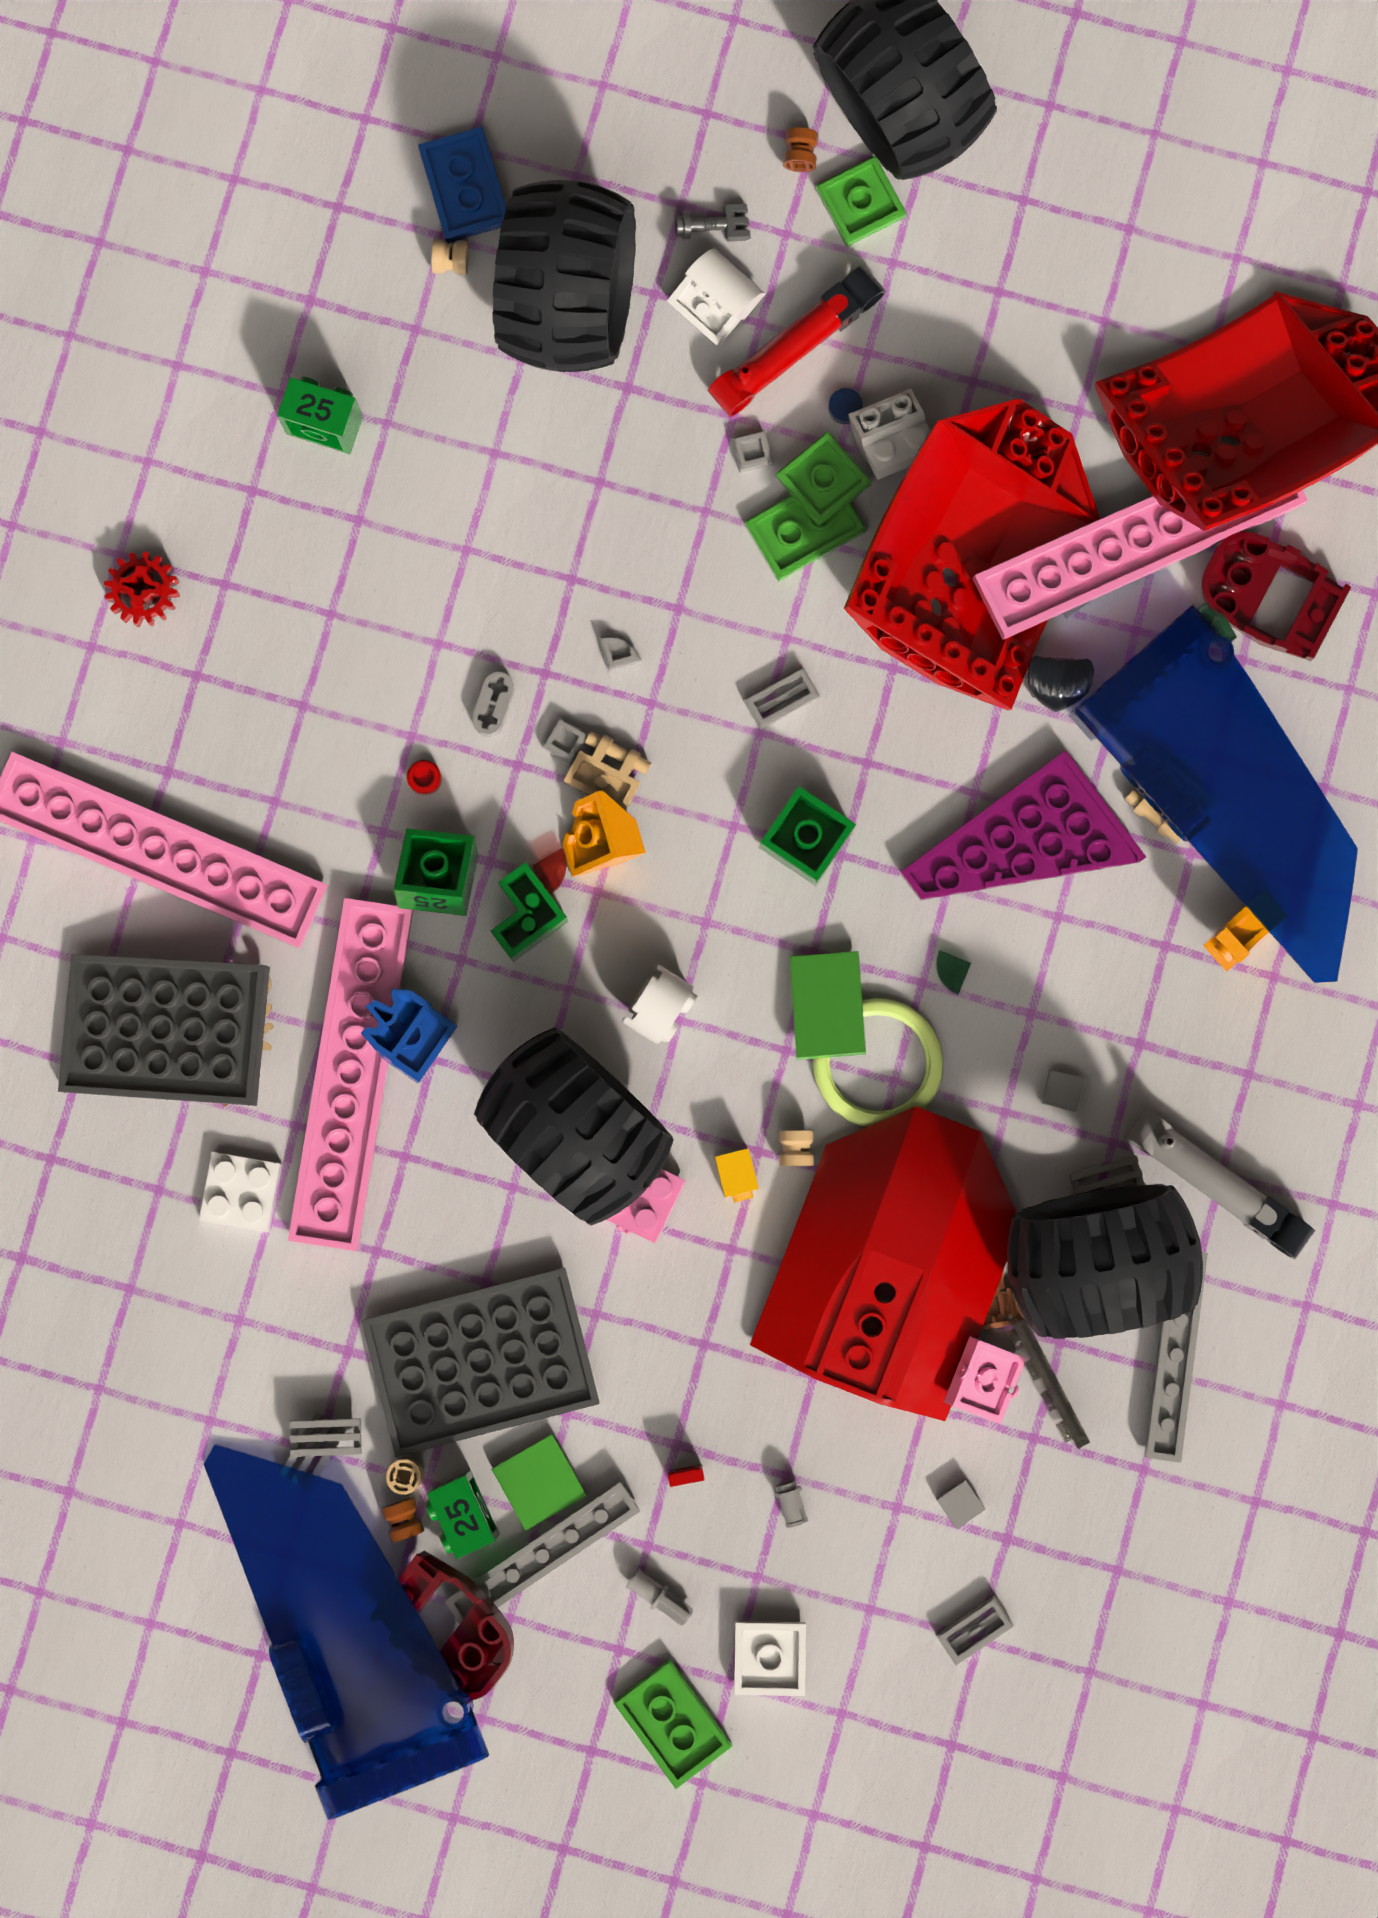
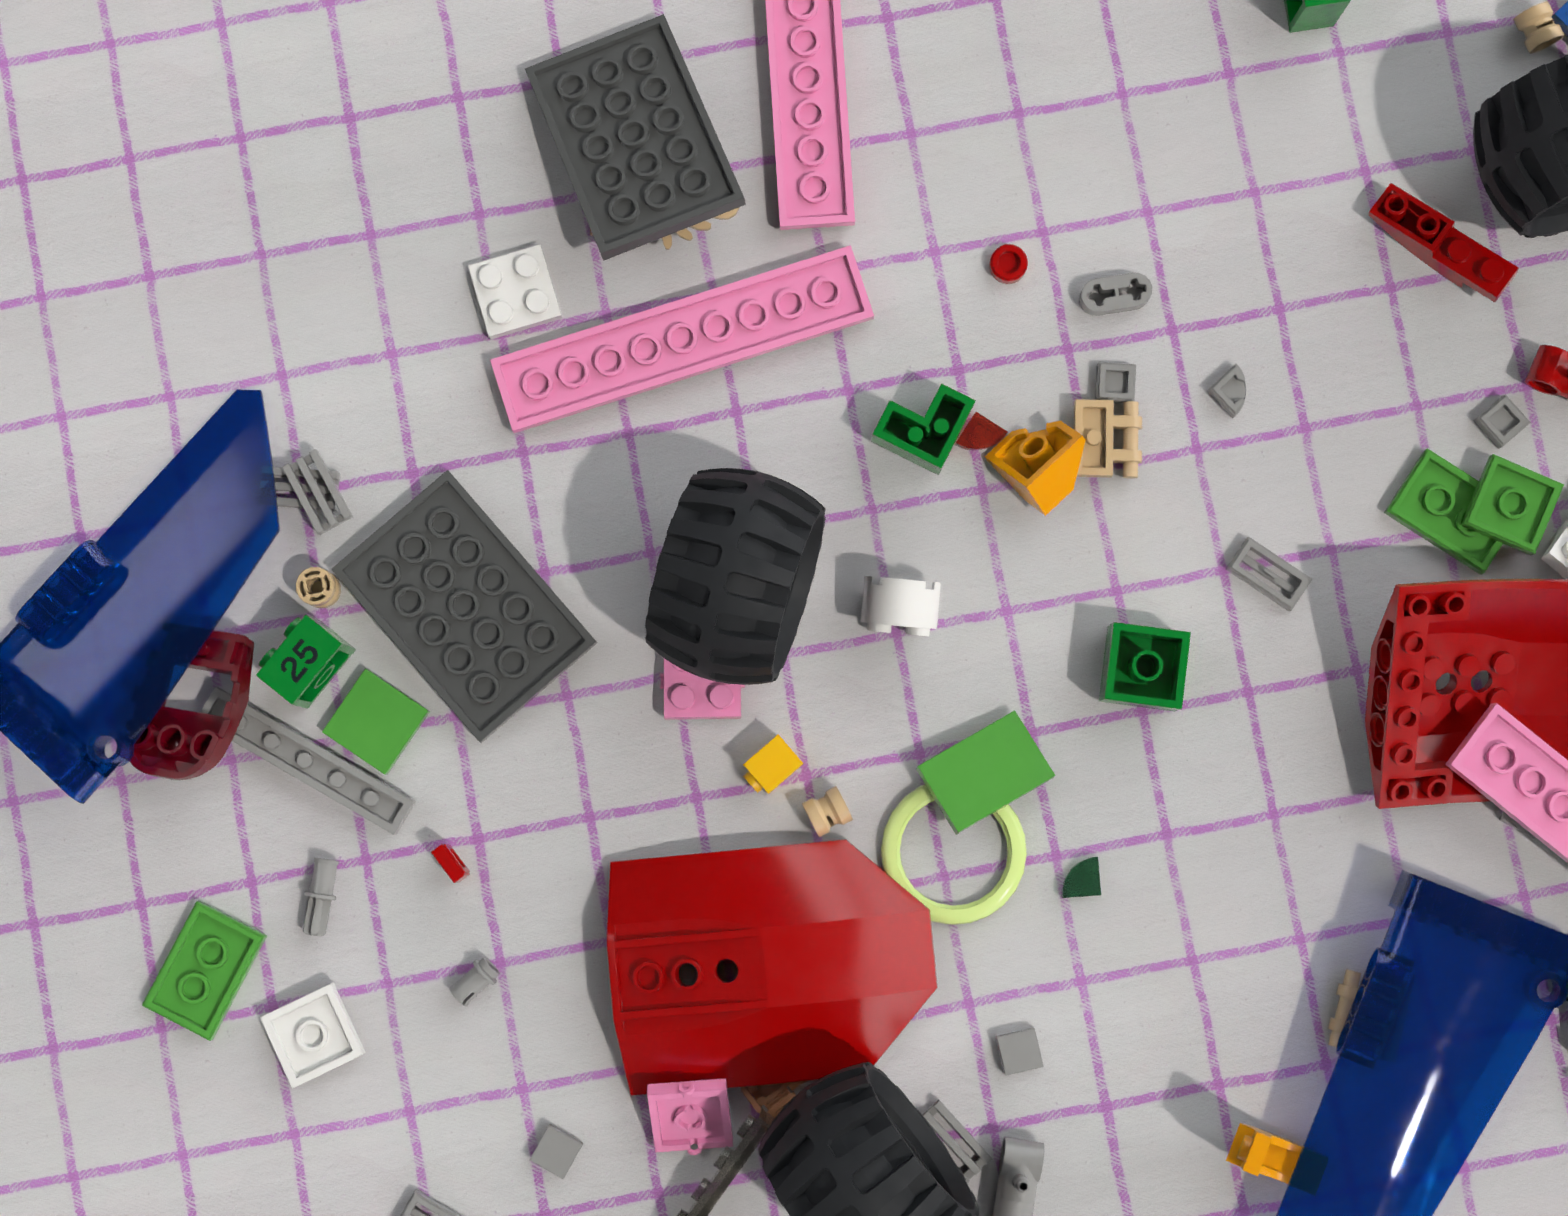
camera: 65 degrees right, 0 degrees up
(399, 1512) = (280, 600): dark orange wheel -> none
(408, 1033) = (749, 372): blue plate -> none
(436, 872) = (921, 319): green brick -> none
(586, 426) = (1440, 245): none -> red slope
(1034, 832) = (1265, 894): magenta wing -> none
(1059, 681) = (1432, 843): black hair -> none

